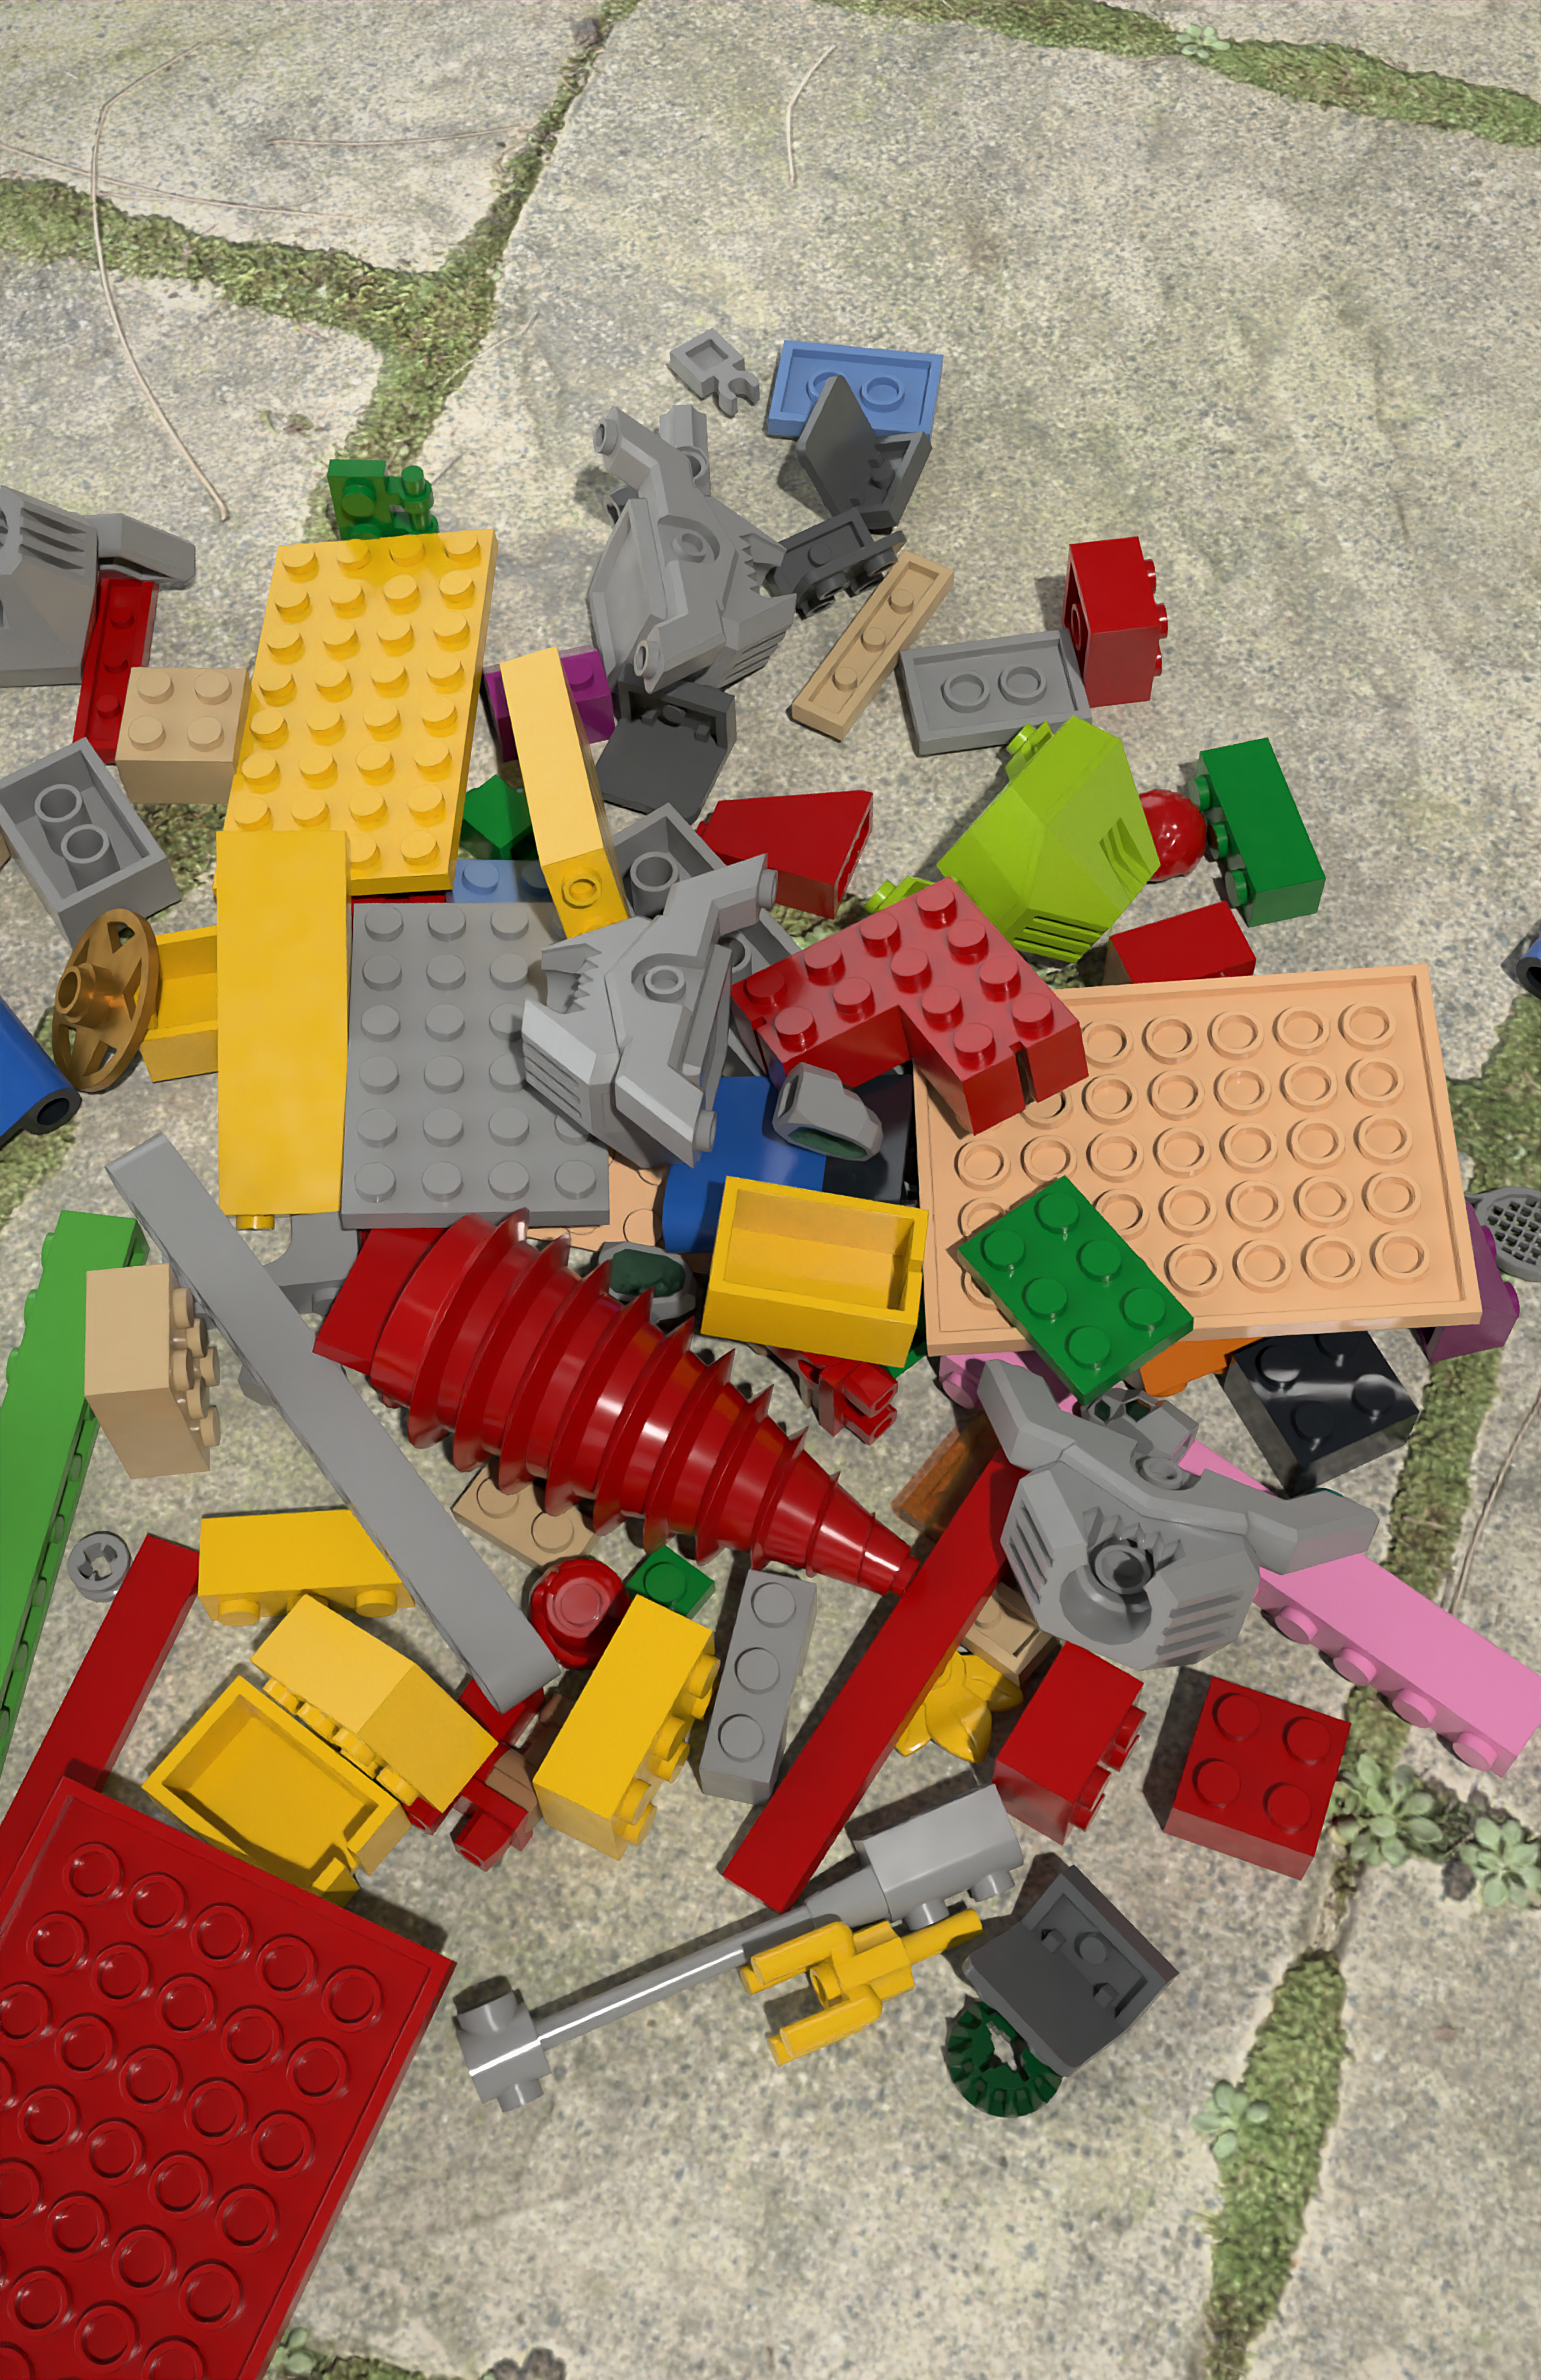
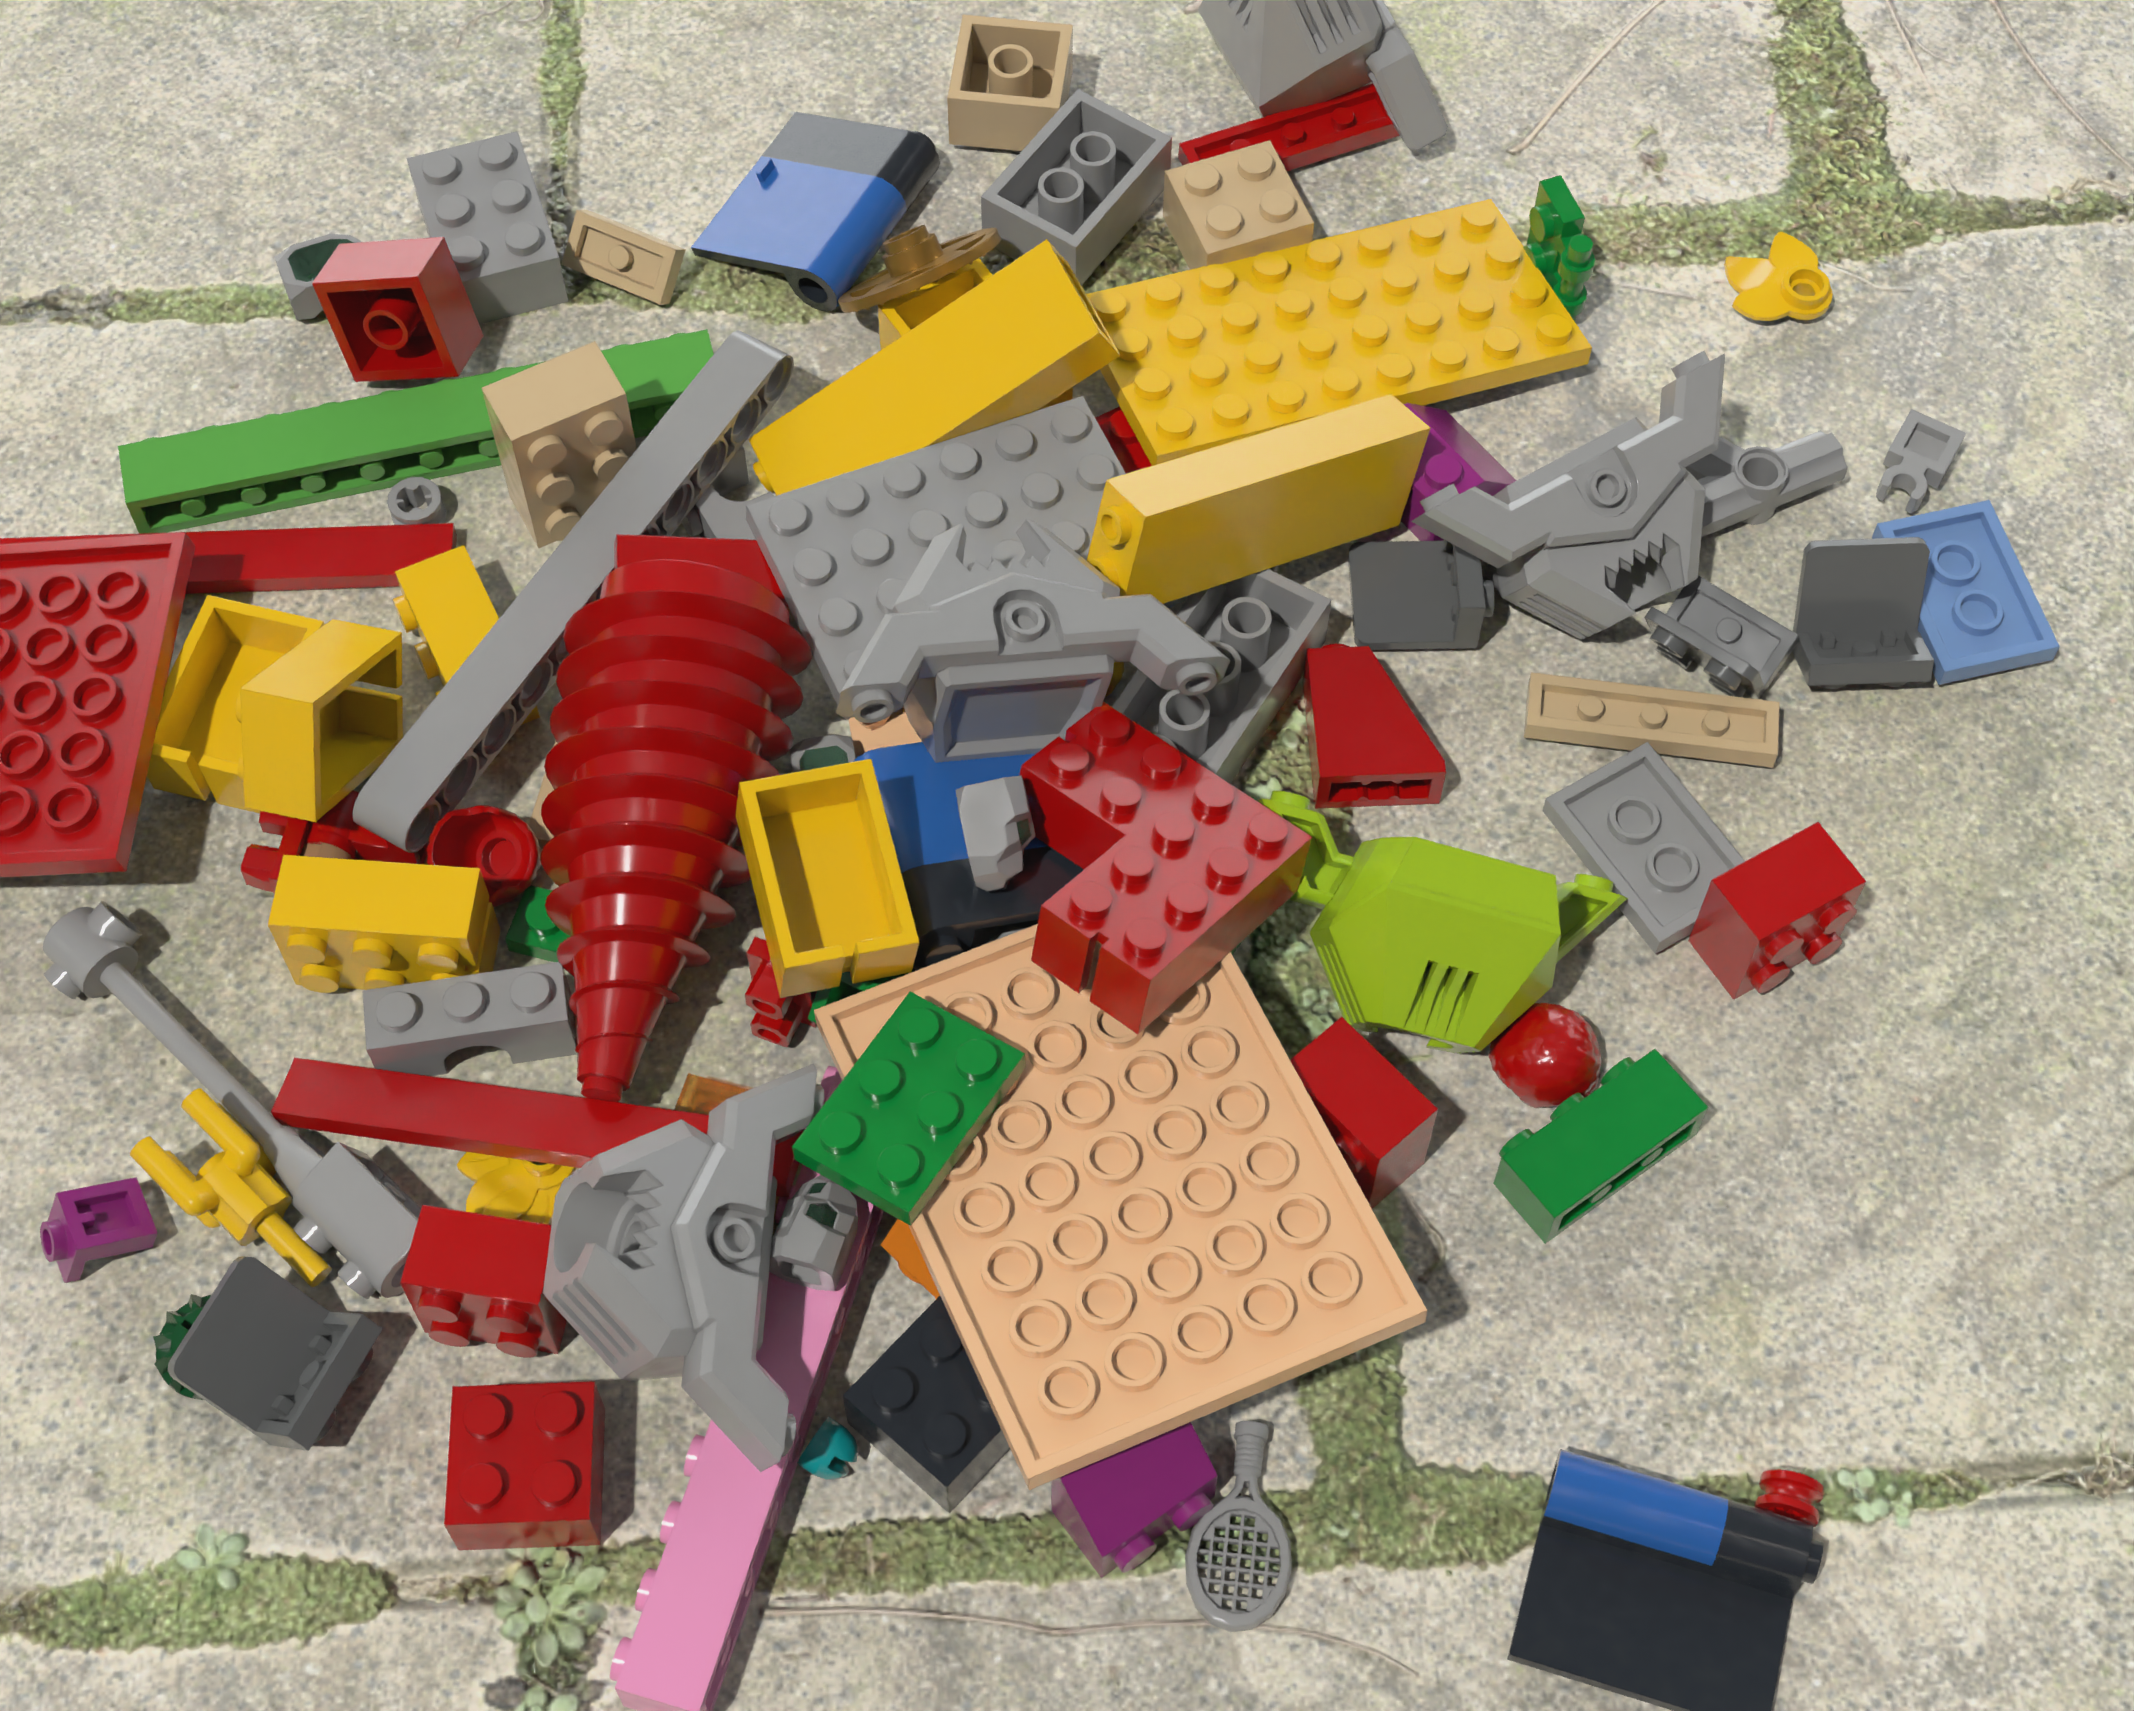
camera: 65 degrees right, 0 degrees up
(484, 388) = (1780, 285): none -> yellow plate
(835, 2135) = (96, 1225): none -> magenta bracket

